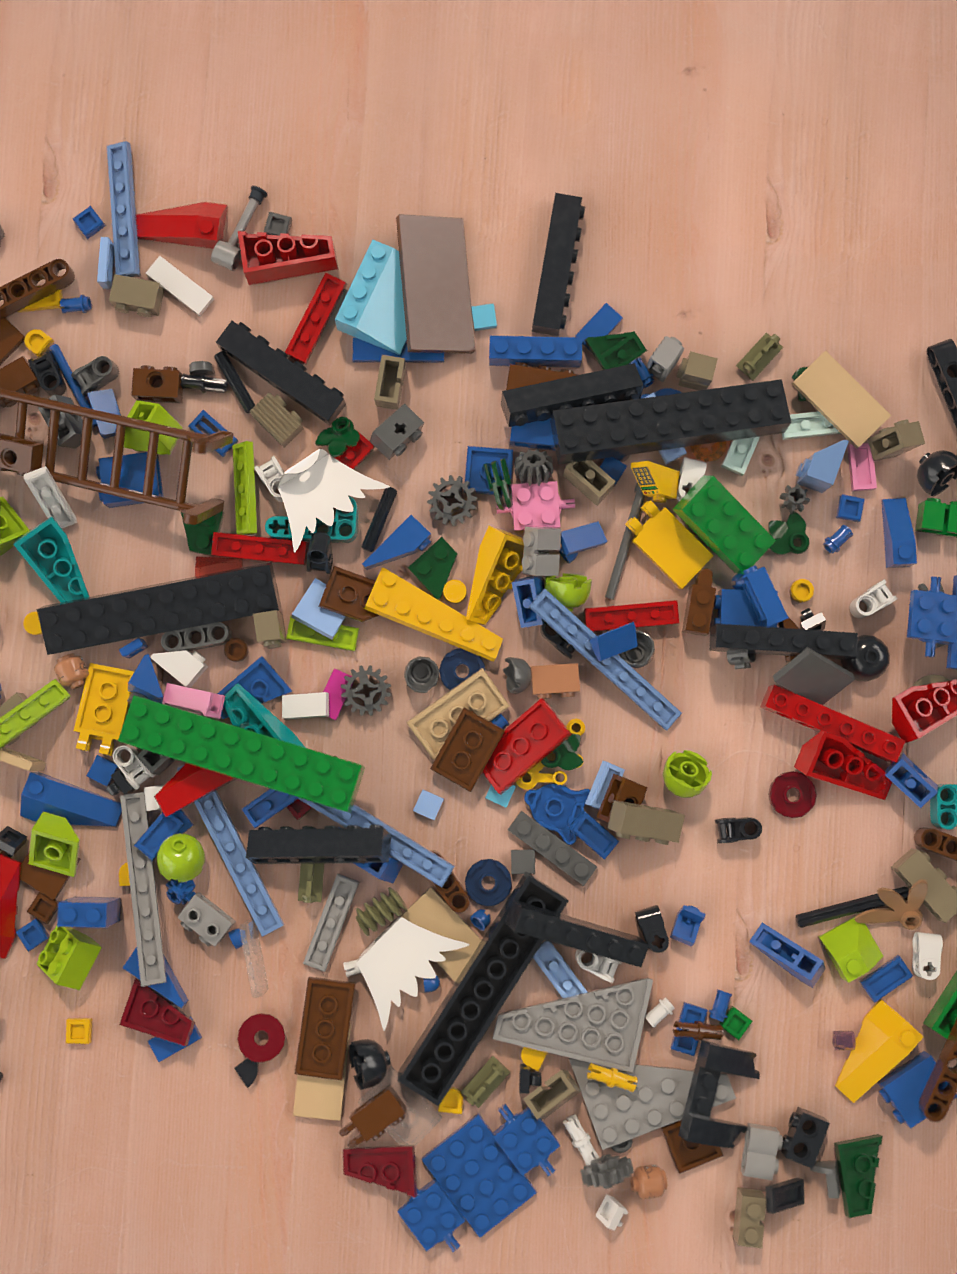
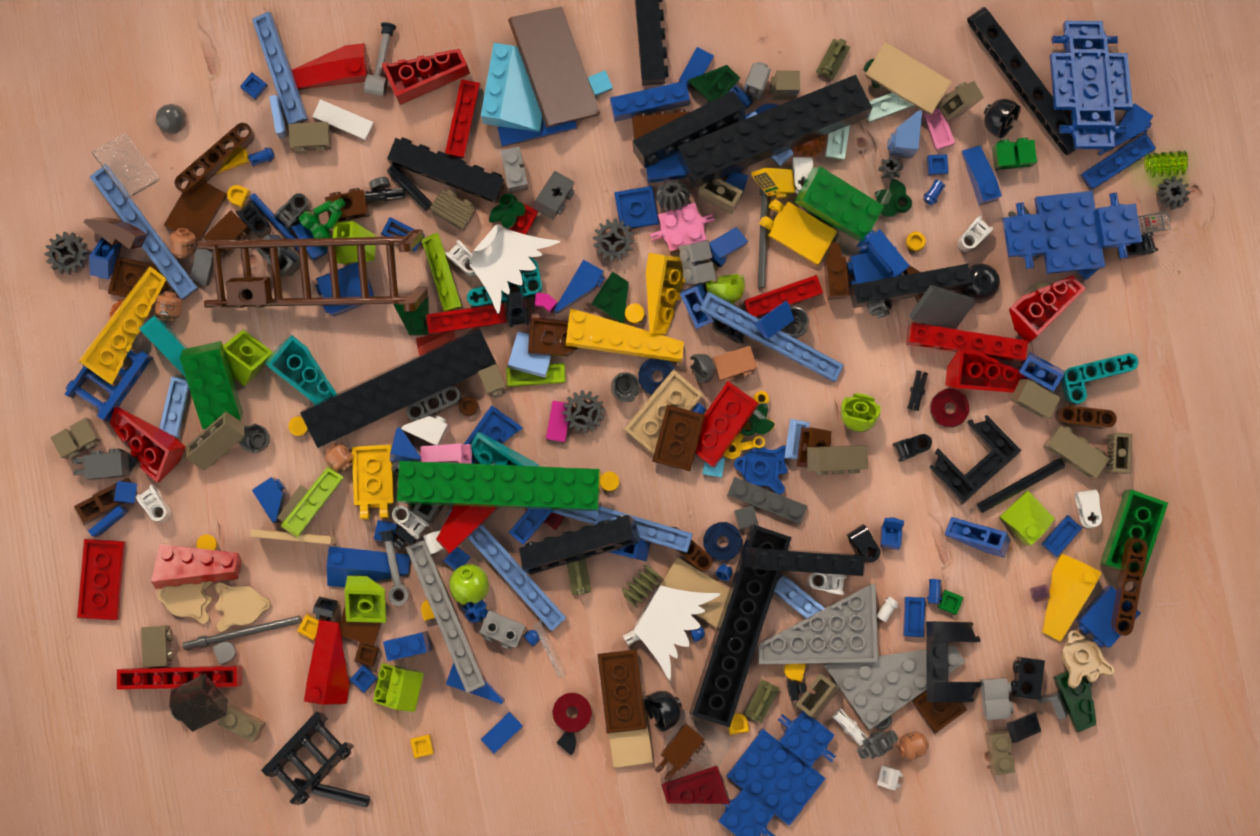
camera: 20 degrees left, 0 degrees up
(50, 497) = (285, 319): white tile -> none
(101, 778) = (387, 537): none -> light grey piece
(112, 392) = (313, 223): none -> green piece
(133, 648) = (385, 425): blue tile -> none
(155, 1016) = (482, 717): dark red wing -> none
(157, 833) = (444, 570): blue tile -> none
(277, 224) = (410, 49): dark grey tile -> none
(305, 705) = (537, 436): white tile -> none
(331, 922) = (603, 606): light grey tile -> none
(354, 552) = (545, 302): none -> dark pink piece
(357, 398) = (514, 169): none -> light grey piece
(375, 778) = (609, 481): none -> yellow tile
(379, 519) = (557, 270): black axle -> none
(389, 382) = (538, 156): dark tan piece -> none
(428, 804) = (658, 491): light blue tile -> none
(499, 483) = (648, 216): dark green arm -> none
(594, 835) = (798, 481): blue tile -> none
(612, 1077) = (862, 669): yellow pin -> none
(698, 1030) = (921, 615): reddish brown pin -> none
(760, 765) = (917, 390): none -> black pin
(812, 622) = (930, 264): tile -> none
(841, 863) = (1002, 453): none -> black wedge
(875, 1133) = (1083, 659): none -> tan tile
(896, 809) = (1035, 398): none -> dark tan brick
(905, 912) = (1058, 476): medium nougat plant -> none

